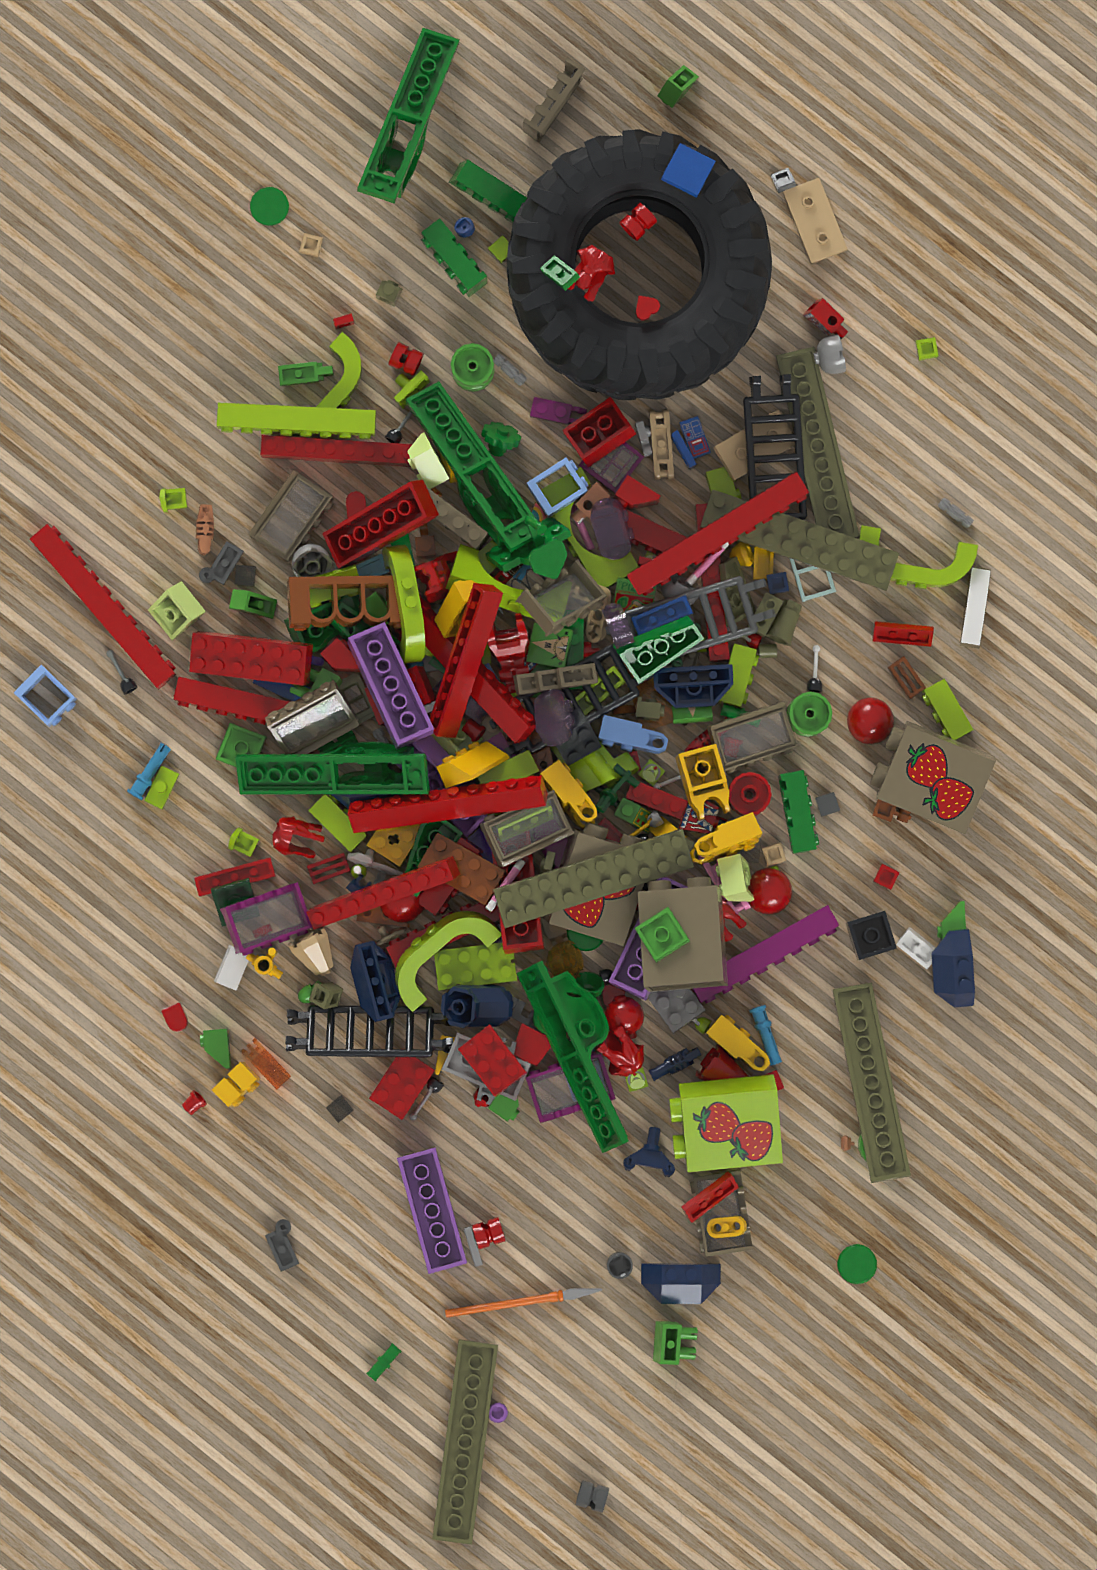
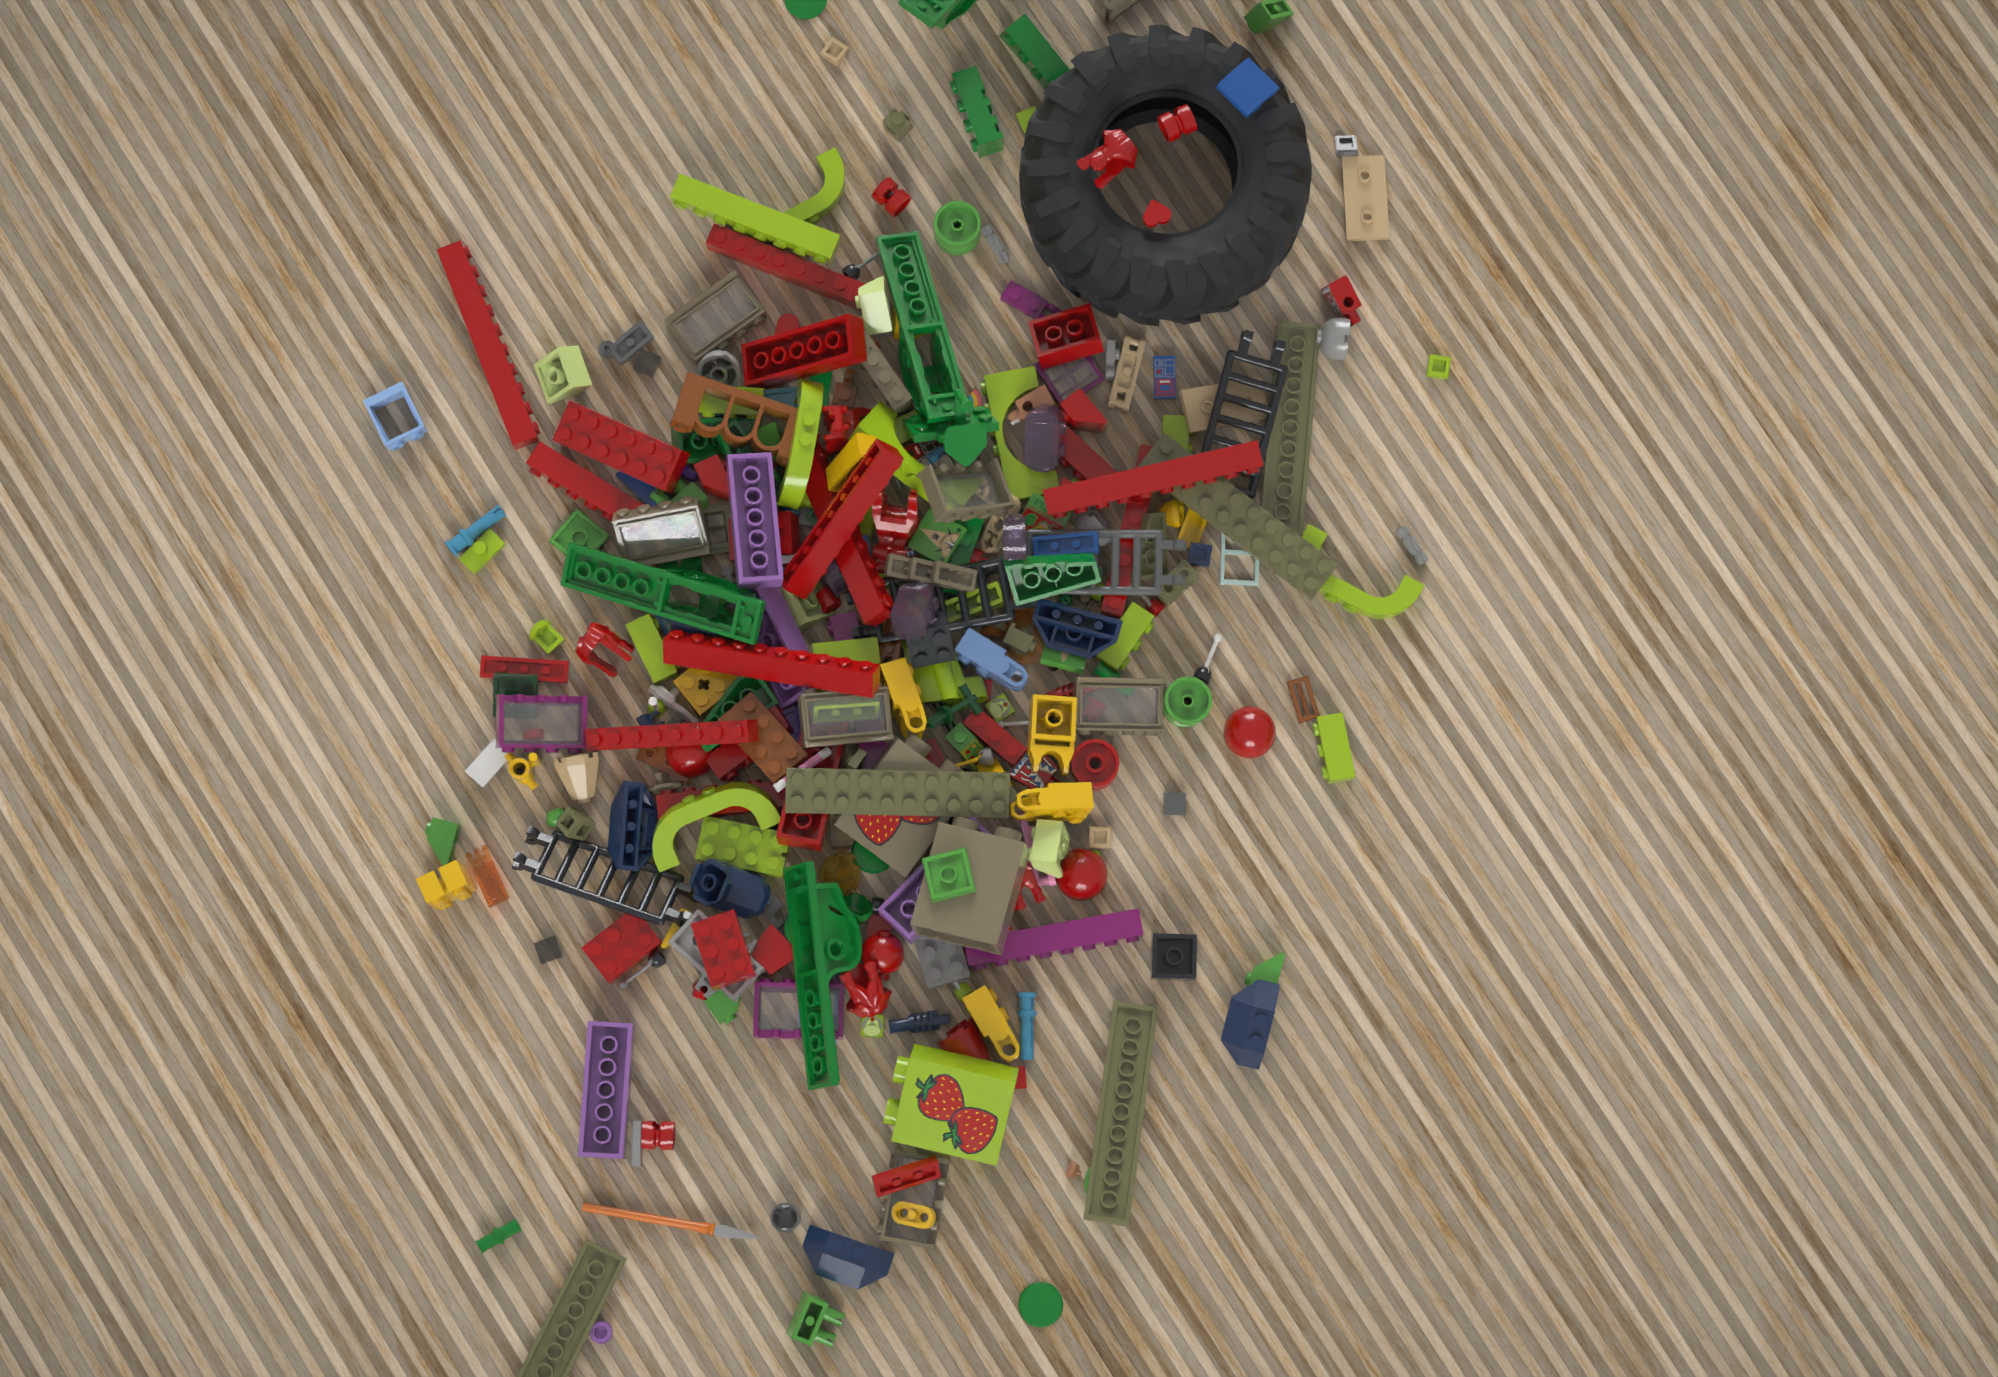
camera: 20 degrees right, 5 degrees down
(127, 684) = (484, 434): hinge -> none
(173, 499) = (600, 260): lime tile -> none
(175, 1017) = (410, 795): red piece -> none
(194, 1102) = (396, 890): red piece -> none
(204, 528) = (622, 300): nougat hinge -> none
(253, 603) = (644, 393): bright green slope -> none
(281, 1245) = (434, 1074): dark grey hinge -> none
(303, 373) = (780, 177): bright green hinge -> none
(343, 321) = (840, 138): red tile -> none
(344, 862) = (607, 694): red tile -> none
(410, 387) = (885, 226): lime tile -> none
(464, 227) = (999, 85): blue tile -> none
(470, 763) = (809, 629): yellow slope -> none
(500, 438) = (960, 309): green plant -> none
(539, 496) = (985, 398): light blue window -> none
(560, 272) = (1076, 145): hinge -> none
(583, 531) = (1015, 438): bright pink bar -> none
(650, 1155) = (859, 1111): dark blue axle -> none
(683, 450) = (1148, 385): blue tile -> none
(705, 565) = (1131, 508): bright pink bar -> none
(767, 650) = (1165, 622): olive hinge -> none
(785, 623) = (1193, 599): olive plant -> none
(797, 811) = (1139, 800): green wedge -> none
(886, 811) = (1235, 830): dark orange plate -> none
(886, 876) = (1211, 901): red tile -> none
(903, 633) = (1314, 652): red plate -> none
(916, 947) = (1218, 986): white hinge -> none
(933, 776) = (1295, 809): dark tan brick -> none
(975, 607) = (1400, 650): white slope -> none

